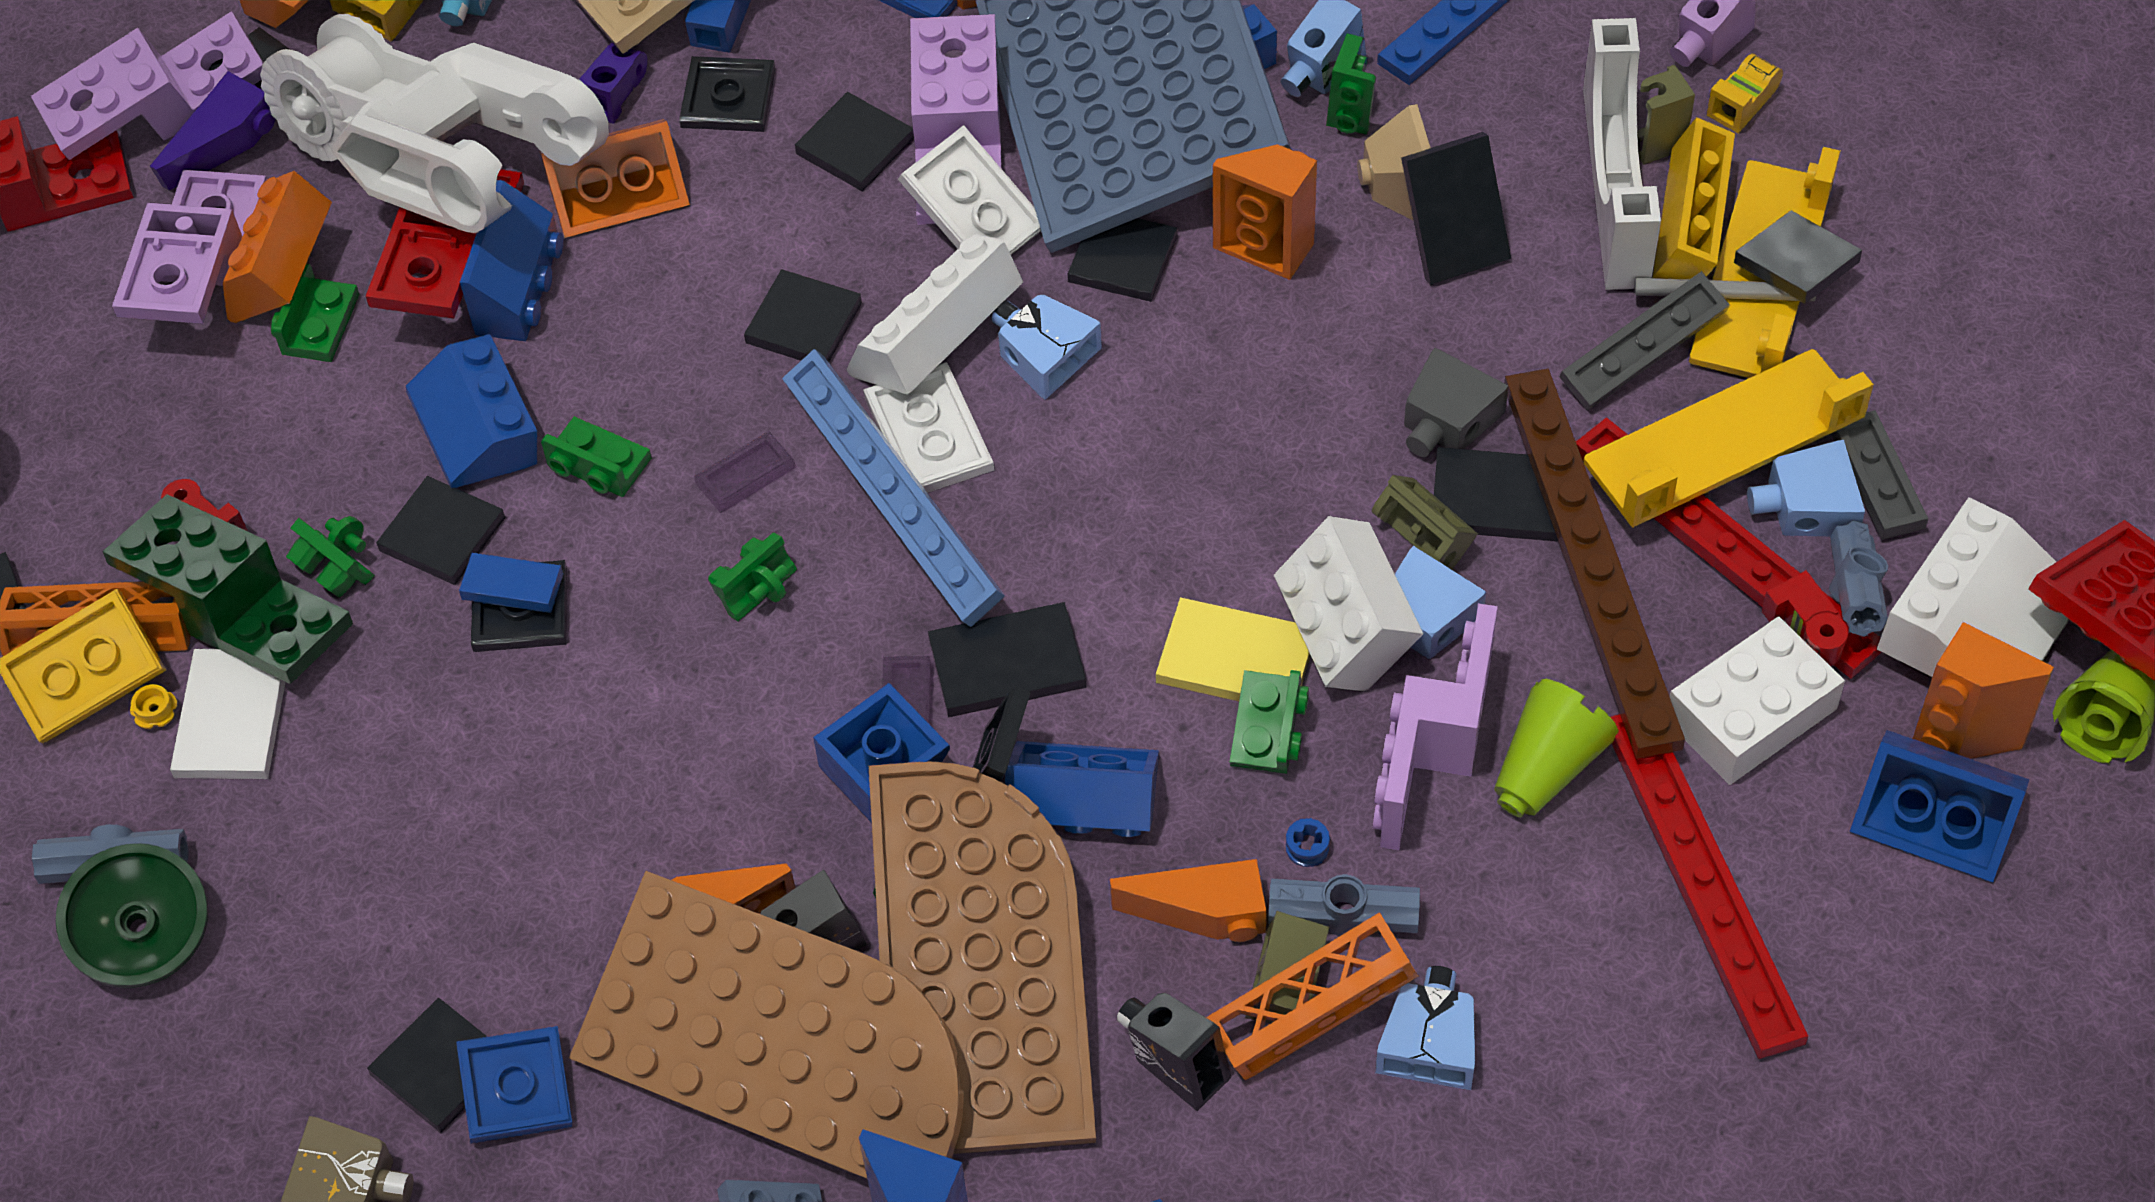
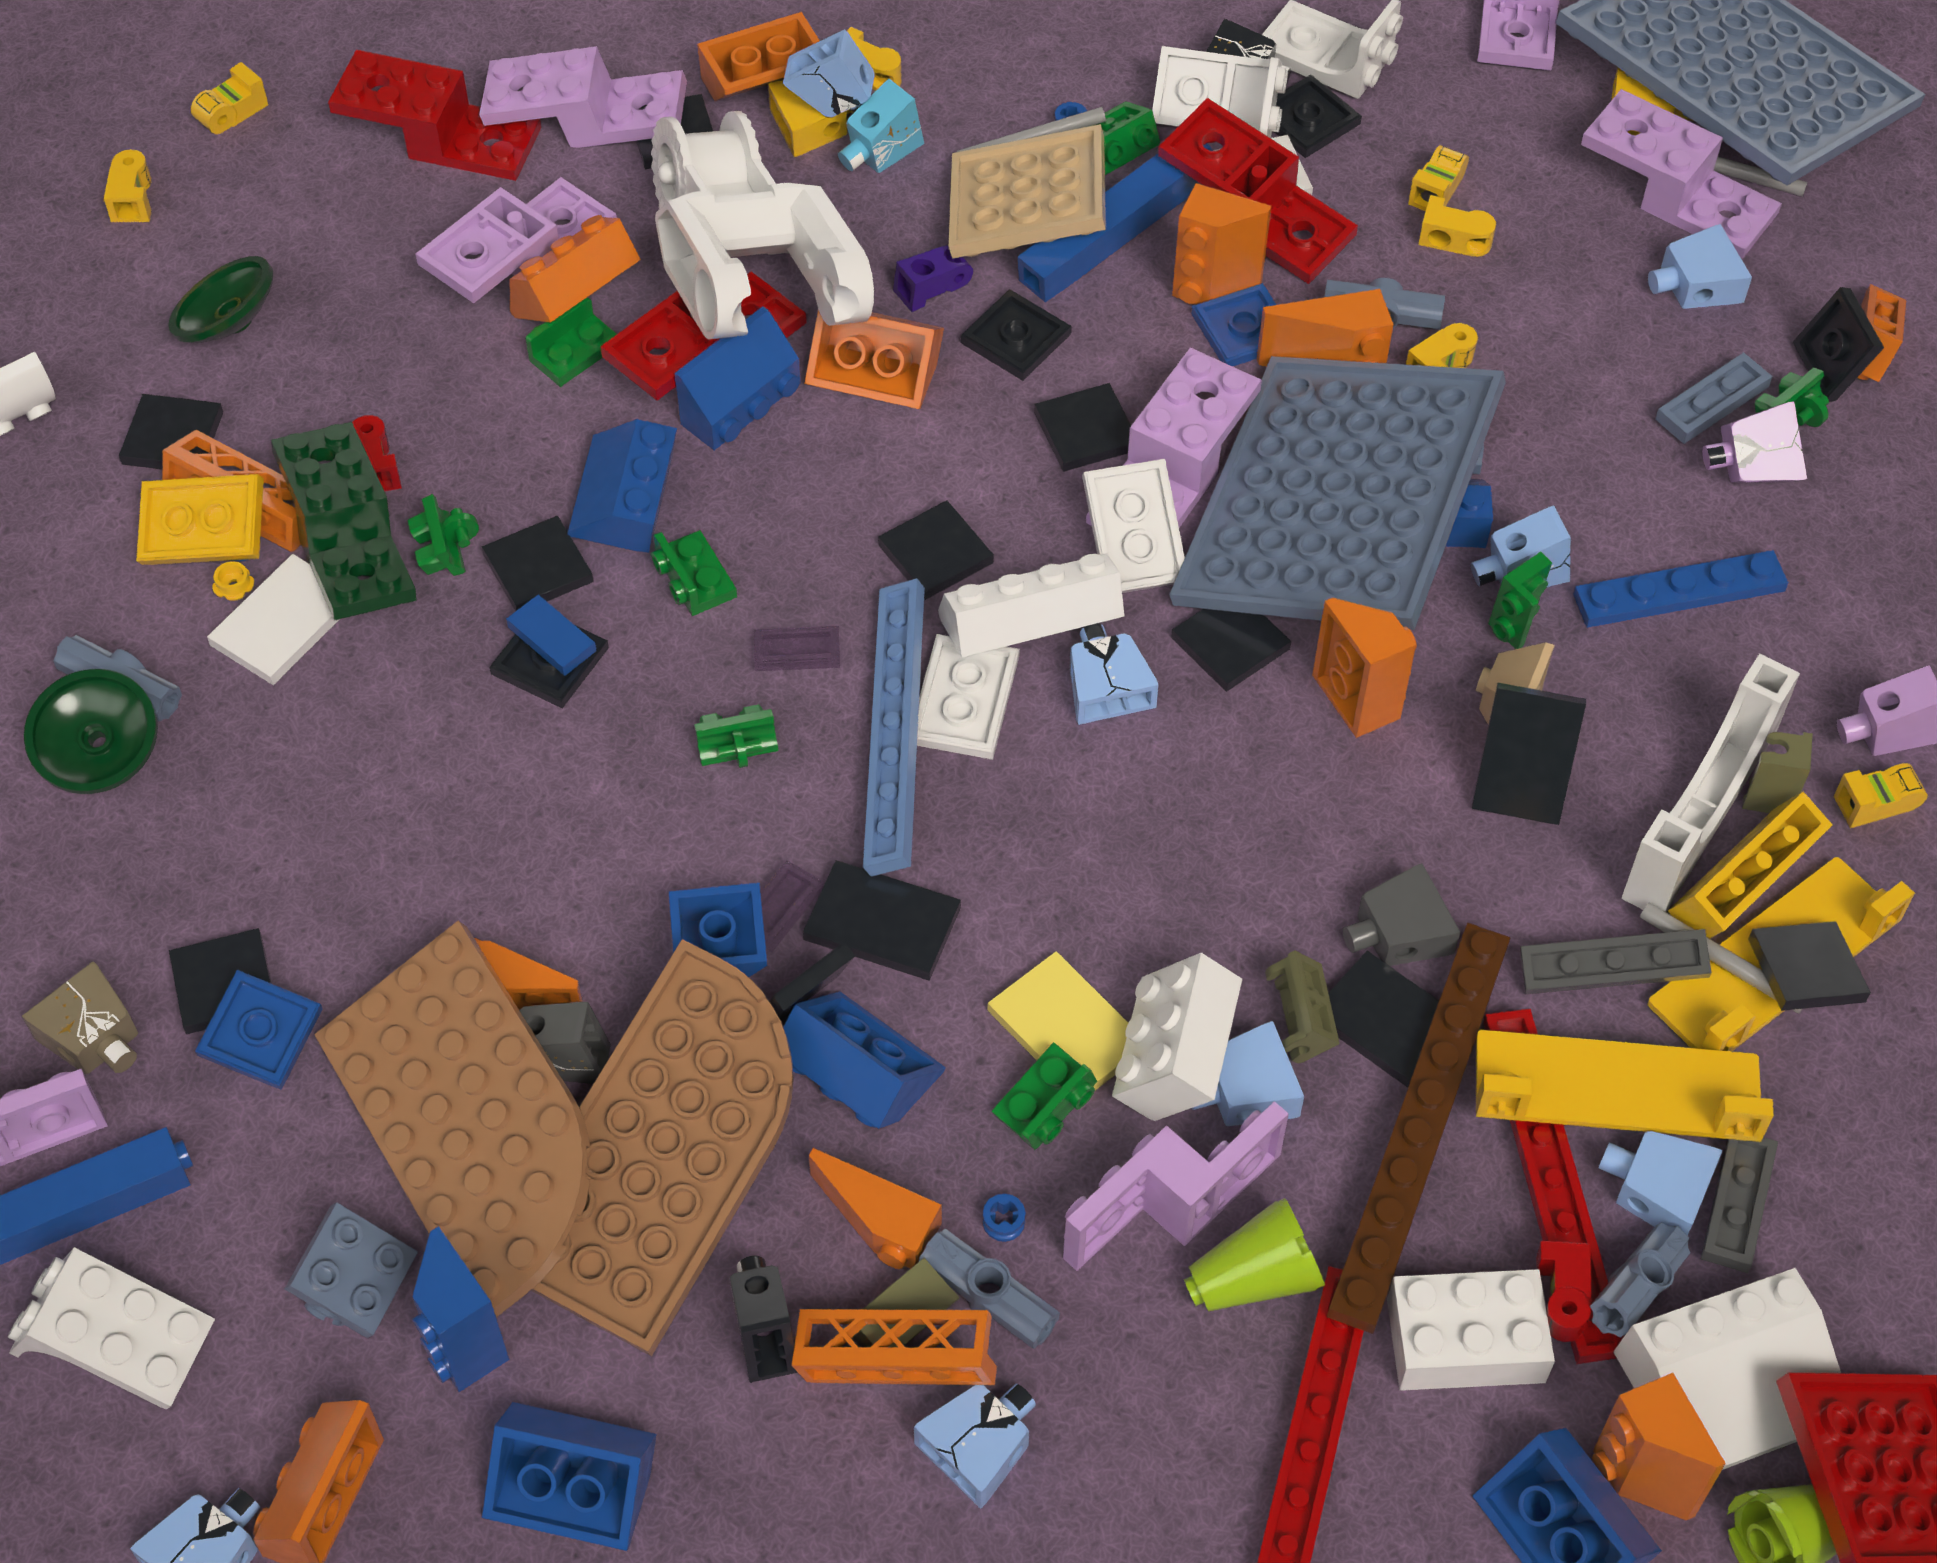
camera: 30 degrees right, 0 degrees up
(219, 129) = (606, 159): dark purple slope -> none

